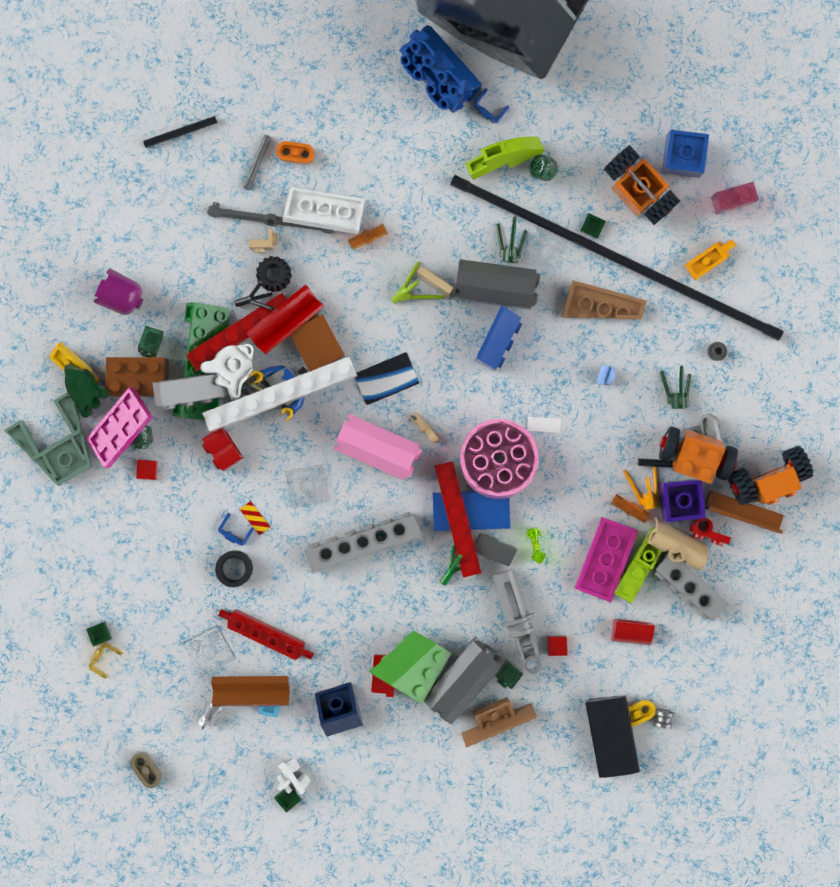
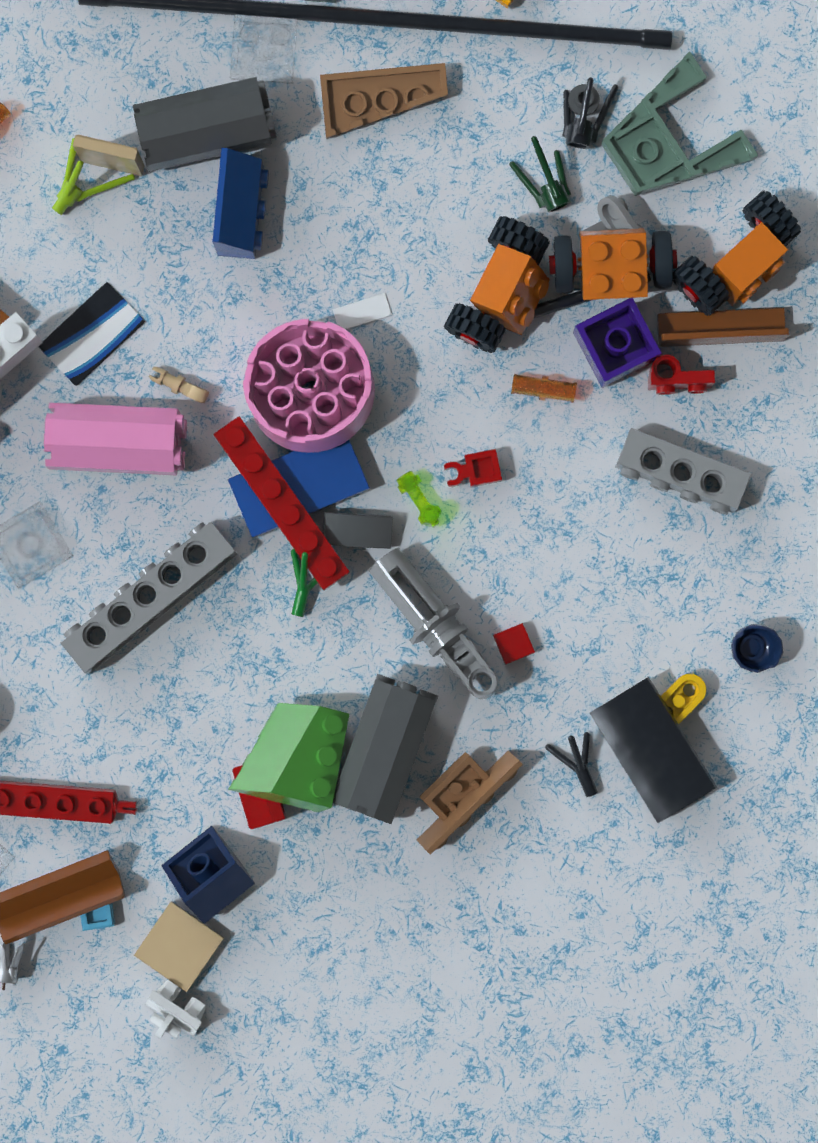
camera: 20 degrees left, 5 degrees down
(287, 800) = (180, 1050): dark green tile -> none
(307, 742) = (179, 946): none -> tan tile
(508, 674) = (453, 716): clear green brick -> none
(510, 253) = (210, 72): dark green plant -> none
(567, 729) = (582, 763): none -> black plant
(576, 540) = (480, 469): none -> red plate
(606, 375) = (427, 198): light blue plate -> none
(606, 559) = (537, 480): dark pink plate -> none
(632, 632) = (622, 577): red brick -> none
(633, 446) = (507, 288): none -> brick
(637, 570) = (594, 467): lime slope -> none
(649, 499) = (568, 362): light orange plant -> none
(663, 718) = (722, 692): flat silver wheel -> none
(679, 545) = (637, 412): tan panel -> none
(692, 701) = (756, 648): none -> dark blue hair
(710, 369) = (580, 133): none -> black plant
(742, 394) = (648, 151): none -> sand green wing

